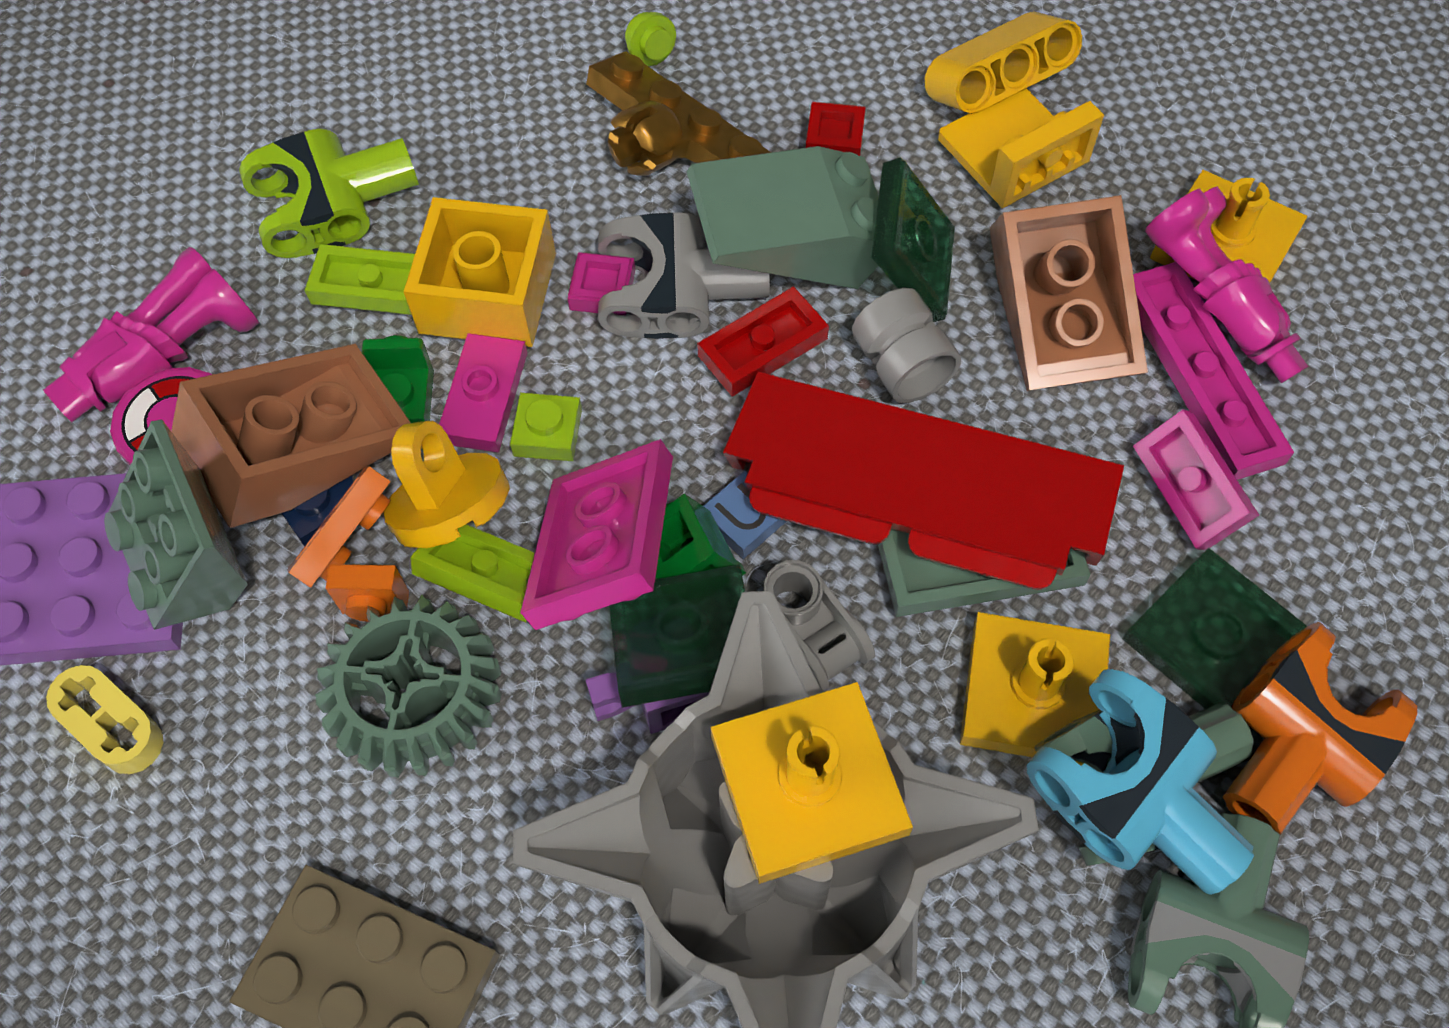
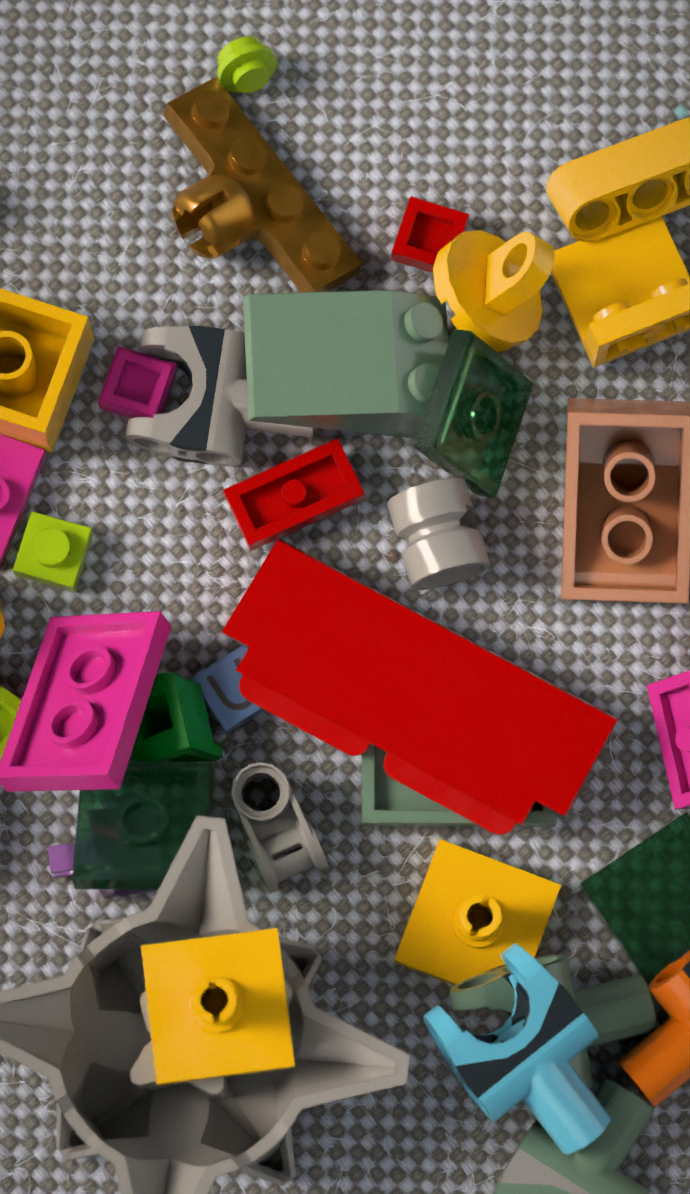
camera: 10 degrees right, 15 degrees up
(910, 135) = (494, 285): none -> yellow tile

